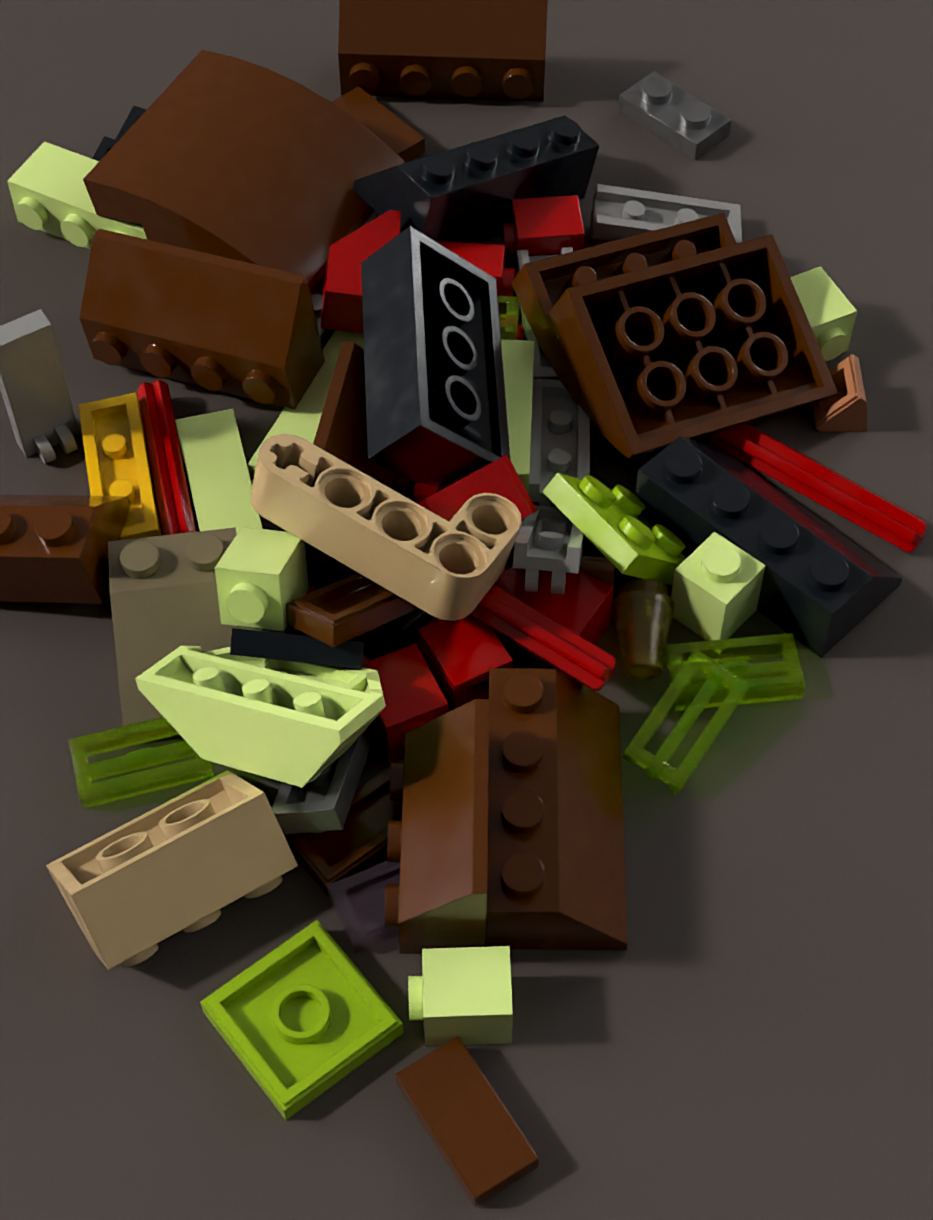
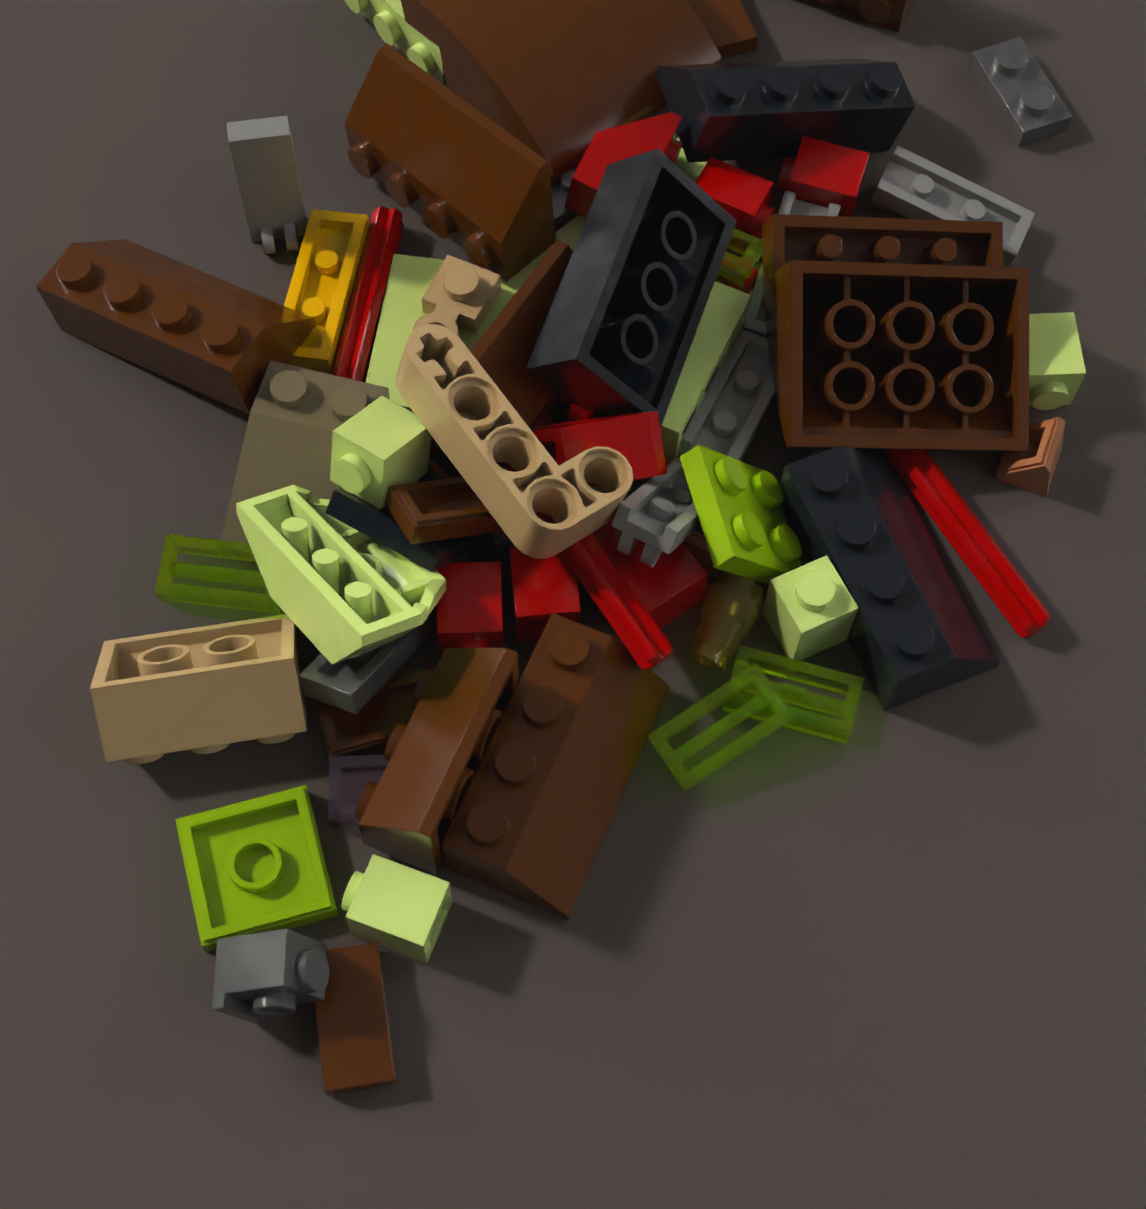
camera: 20 degrees right, 10 degrees up
(248, 427) = (459, 296): none -> tan plate
(370, 1103) = (268, 974): none -> dark grey brick

